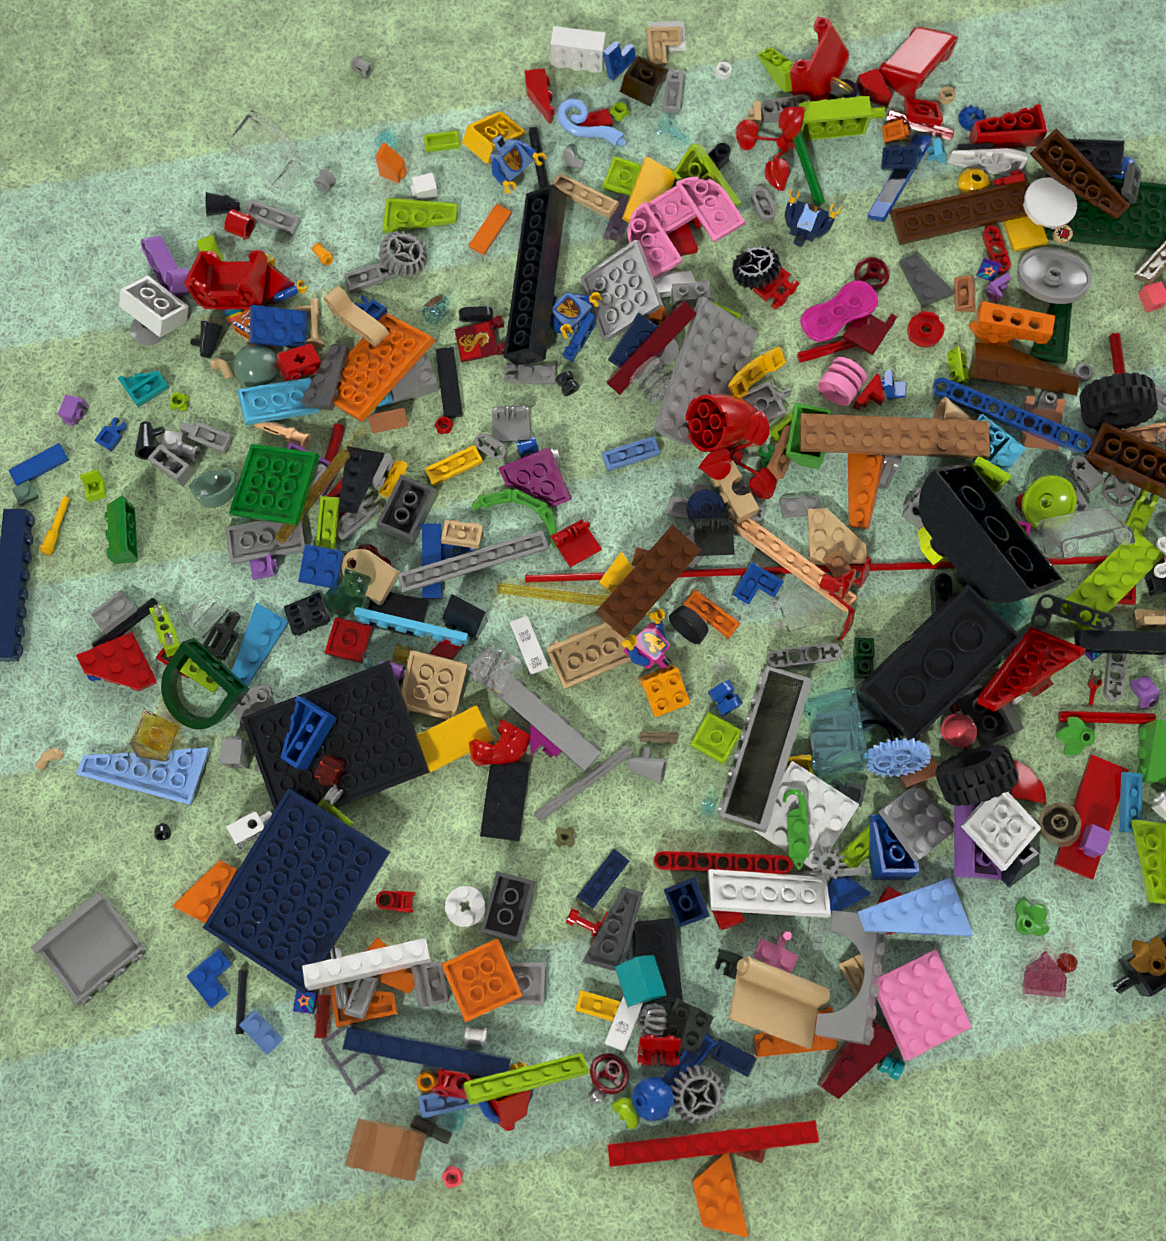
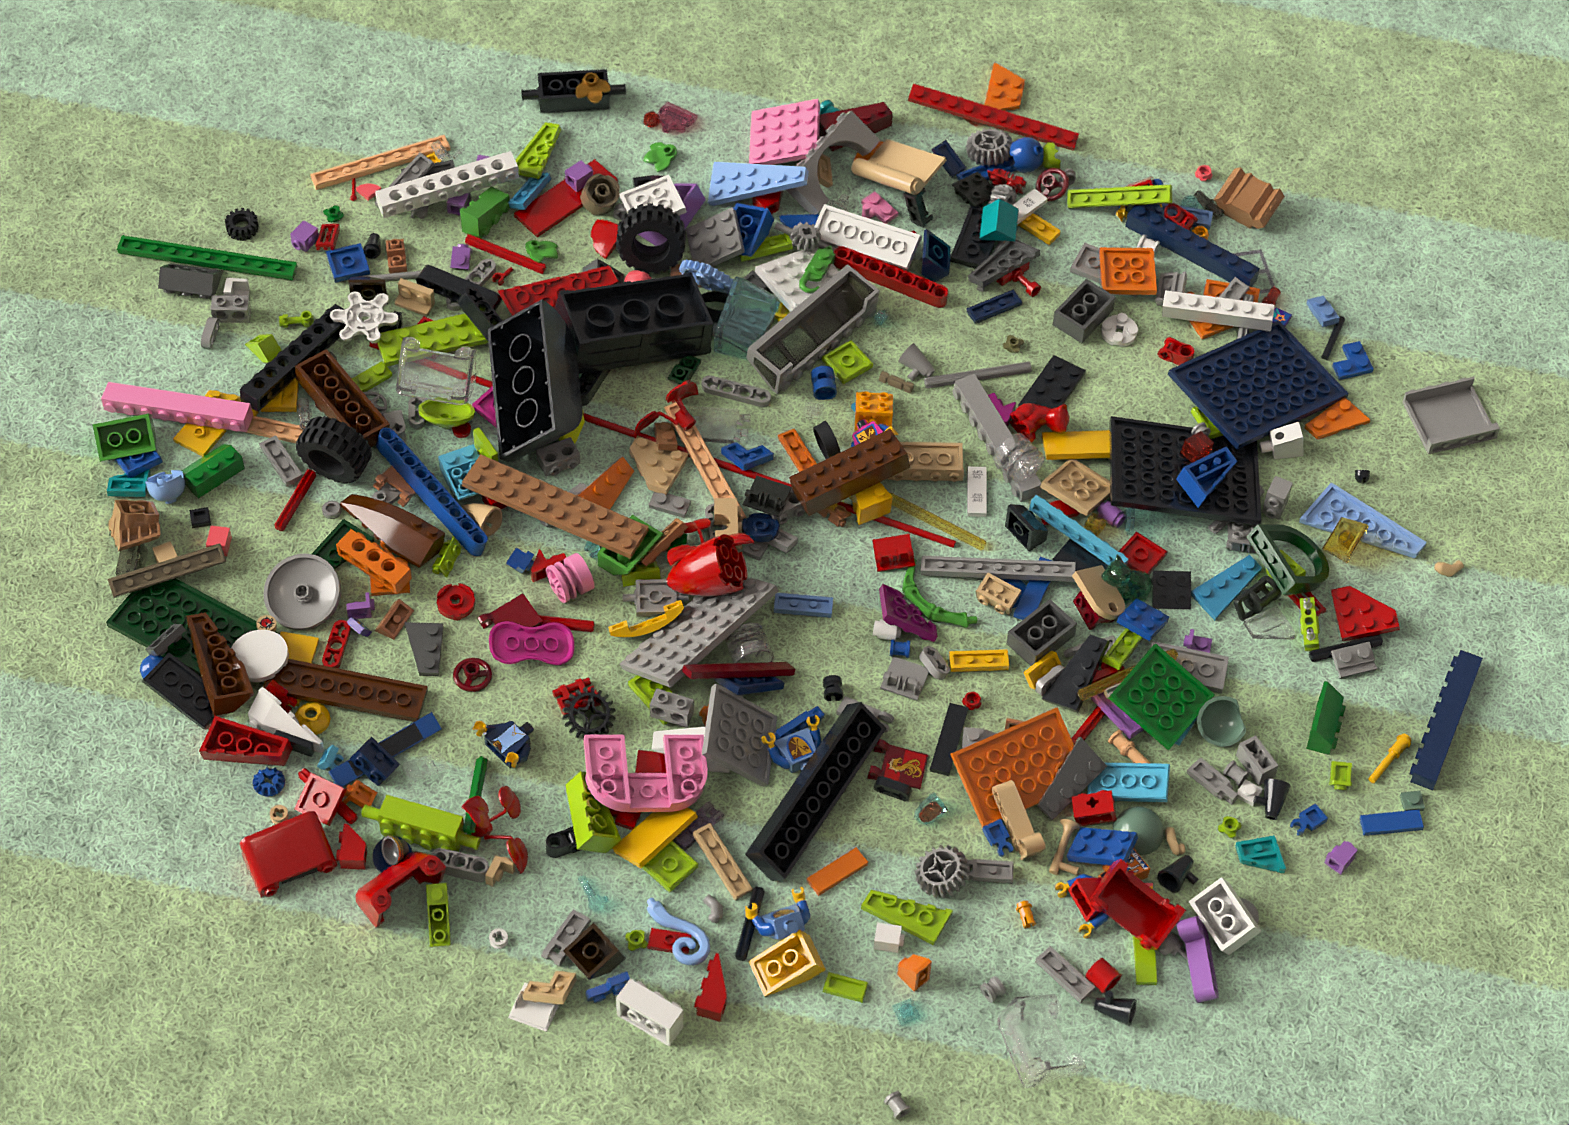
camera: 155 degrees left, 20 degrees down
(764, 205) = (541, 781): light grey plate -> none

